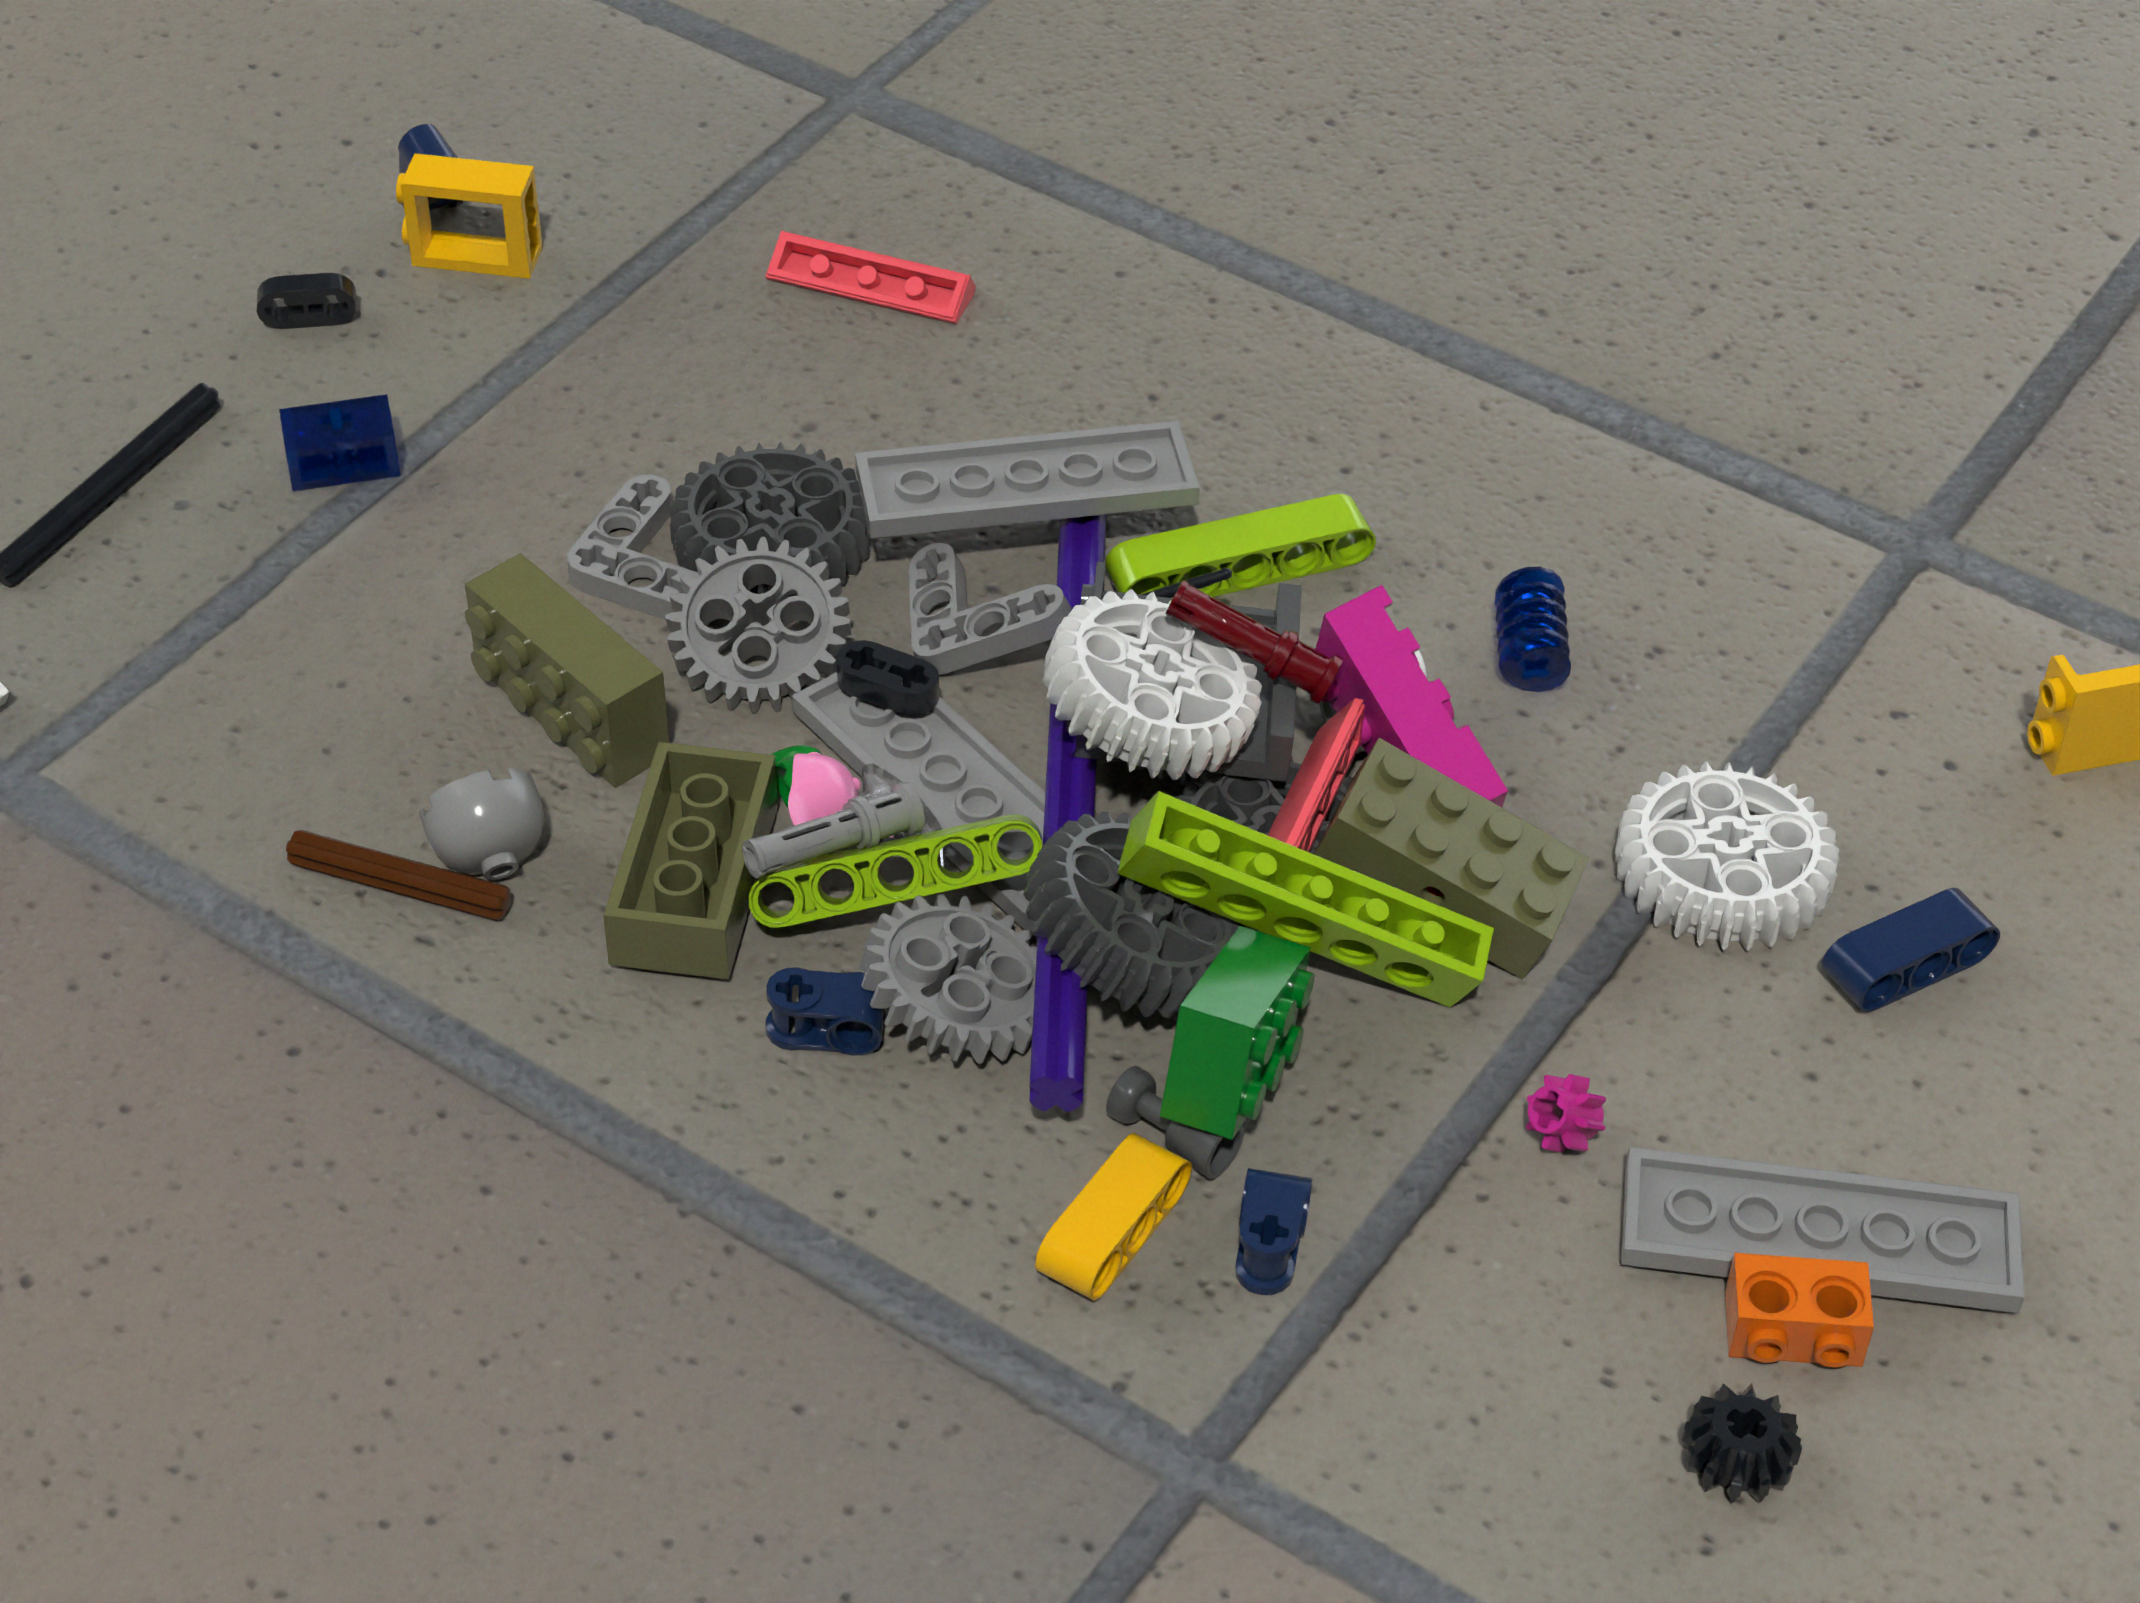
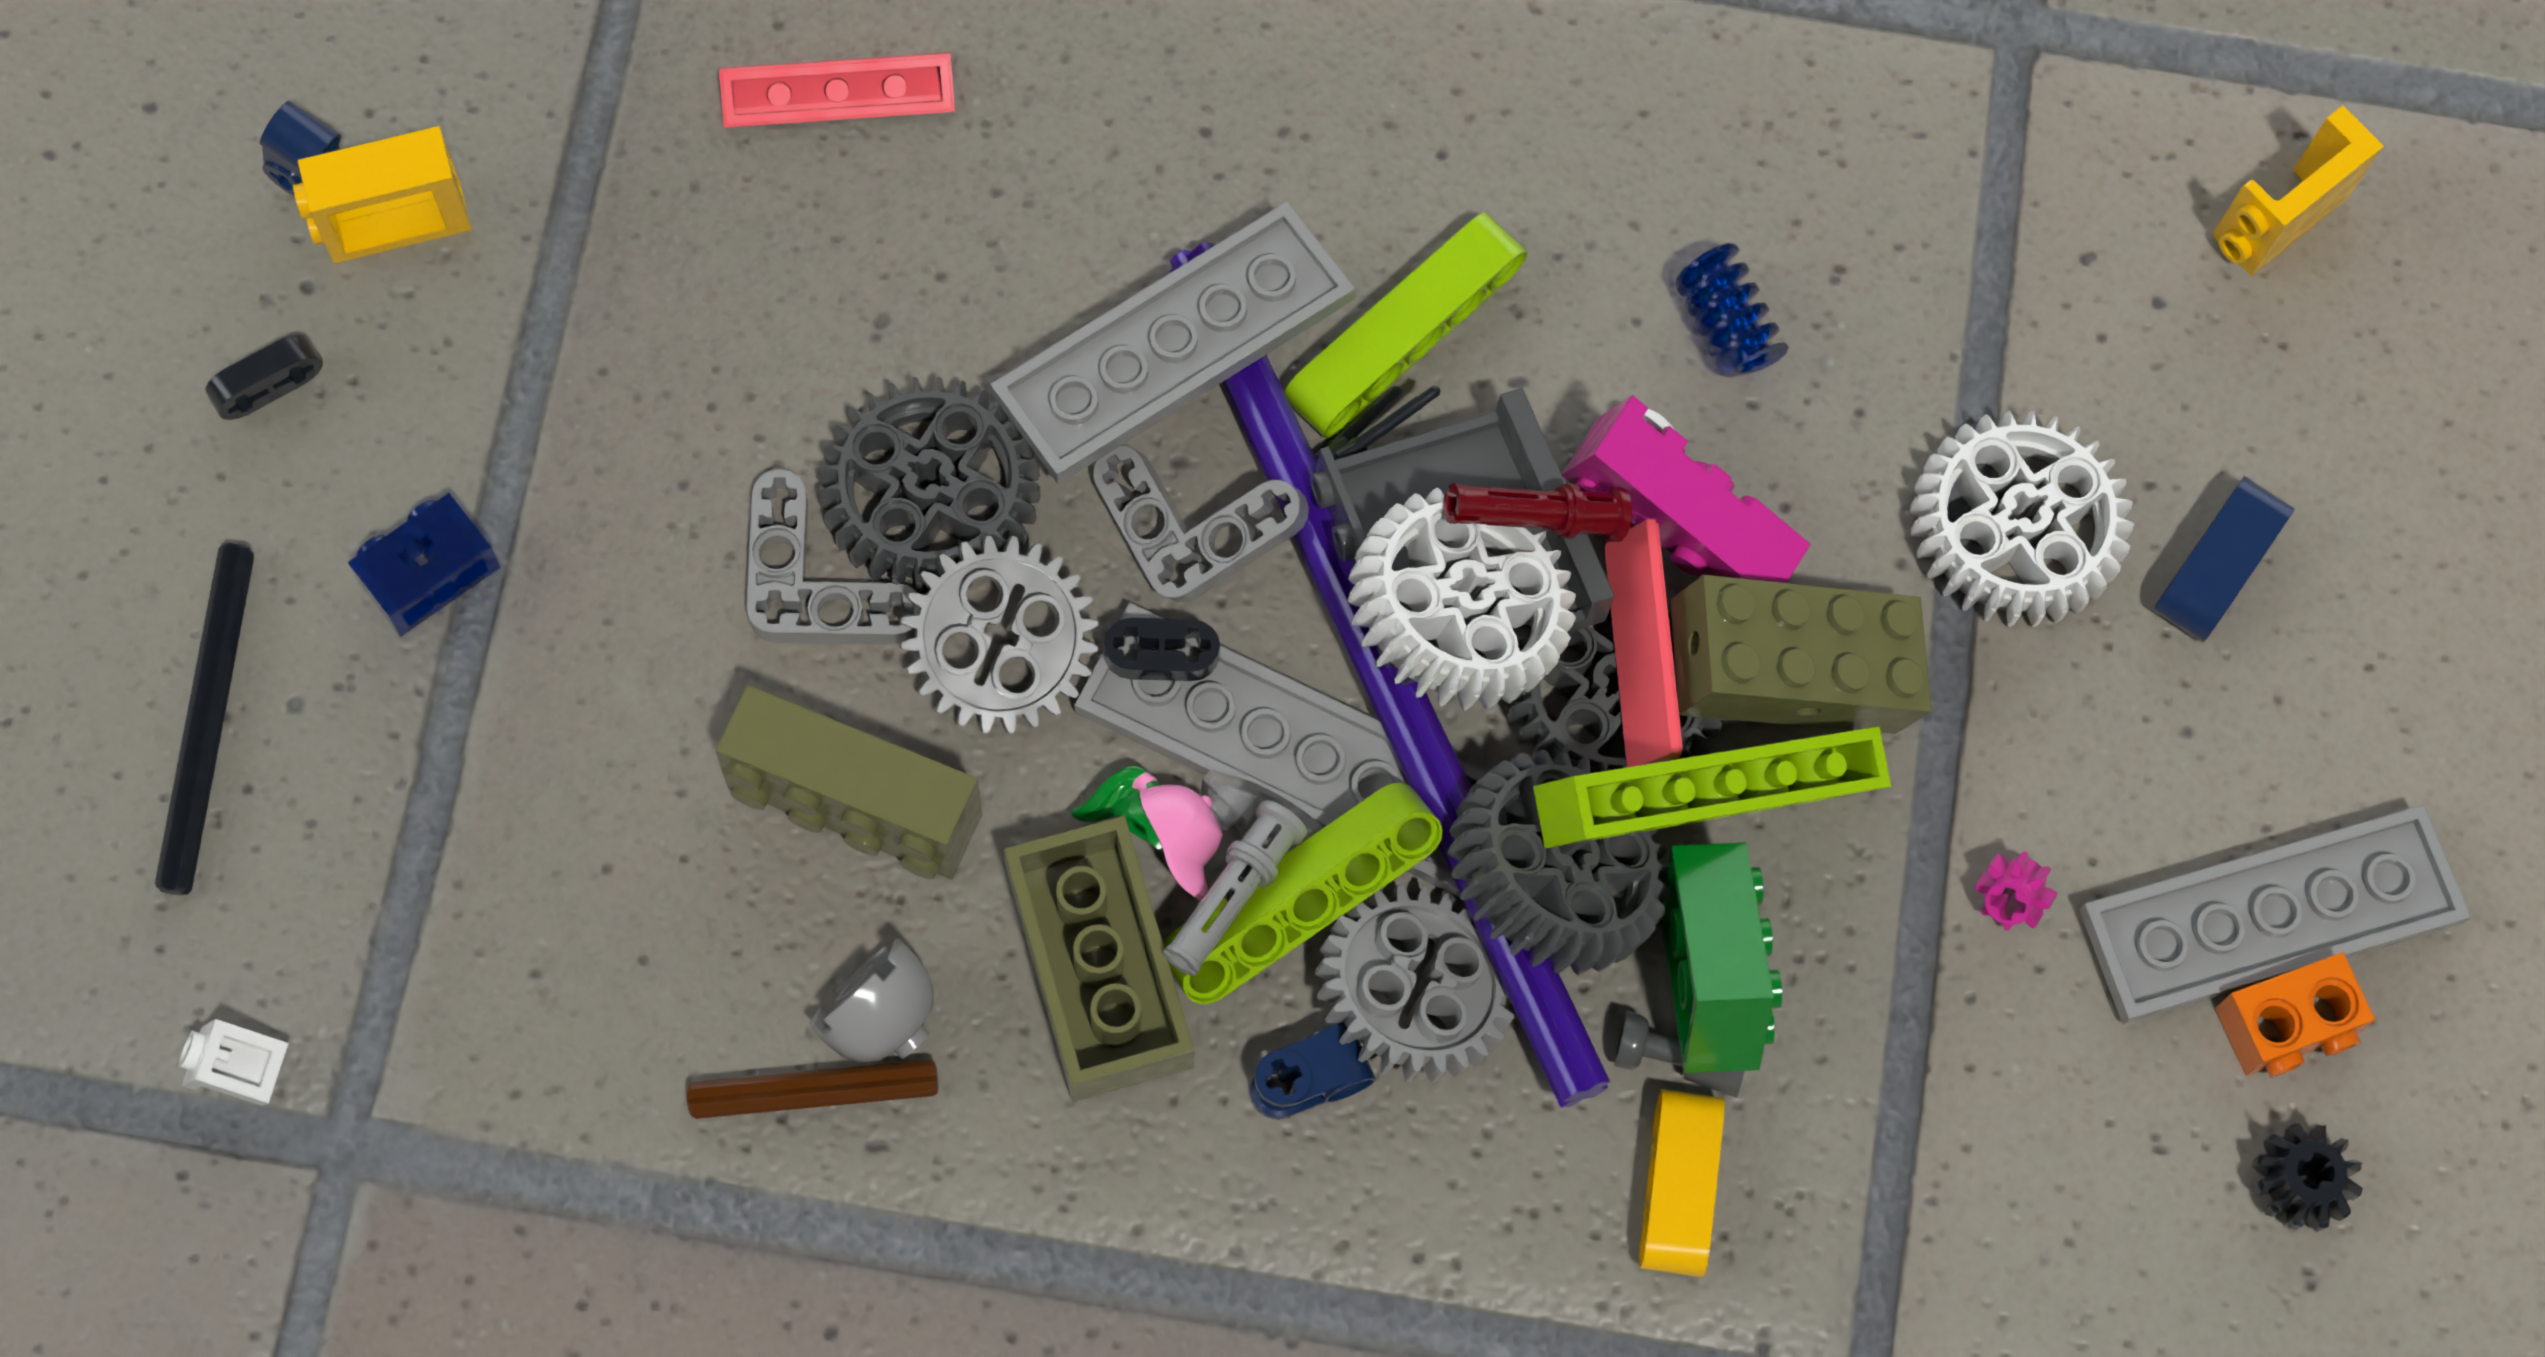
camera: 30 degrees left, 25 degrees up
(1271, 1229) = (1819, 1119): dark blue piece -> none

